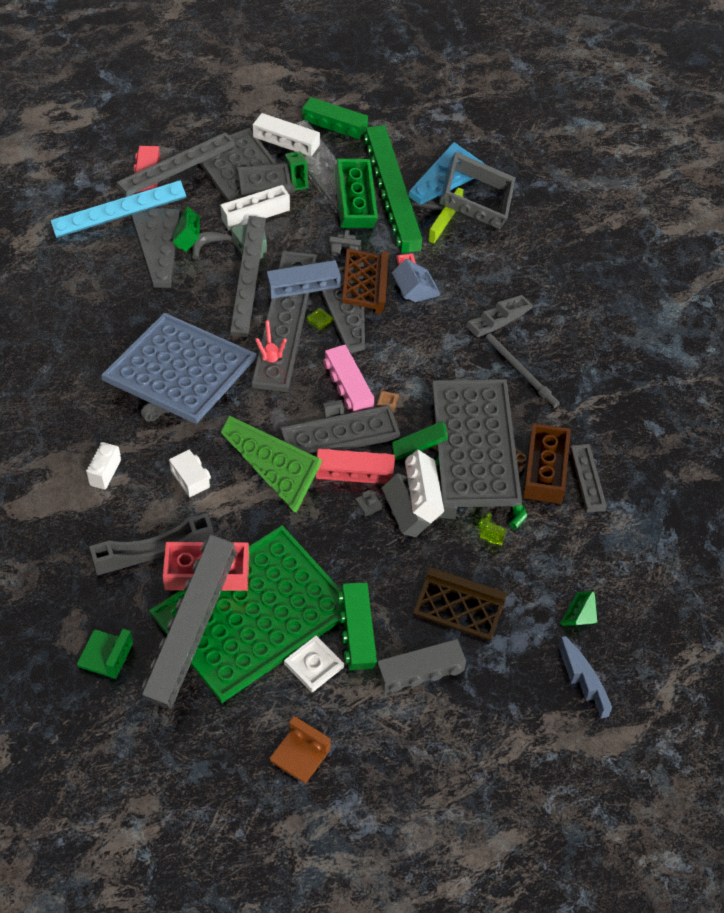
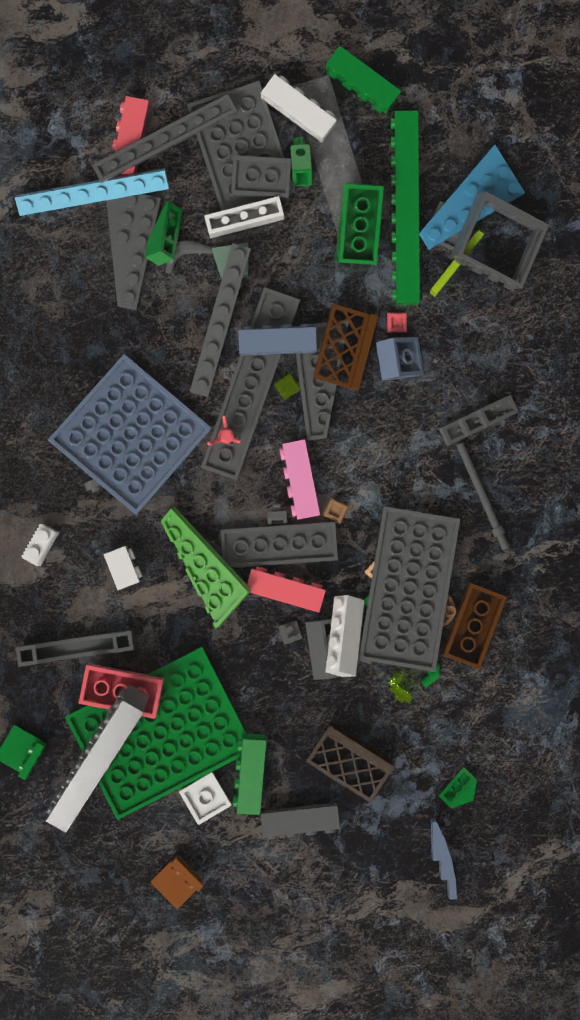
camera: 15 degrees right, 35 degrees up
(344, 242) = (326, 286): dark grey hips -> none
(420, 440) = (354, 577): green tile -> none
(588, 478) = (510, 645): dark grey plate -> none

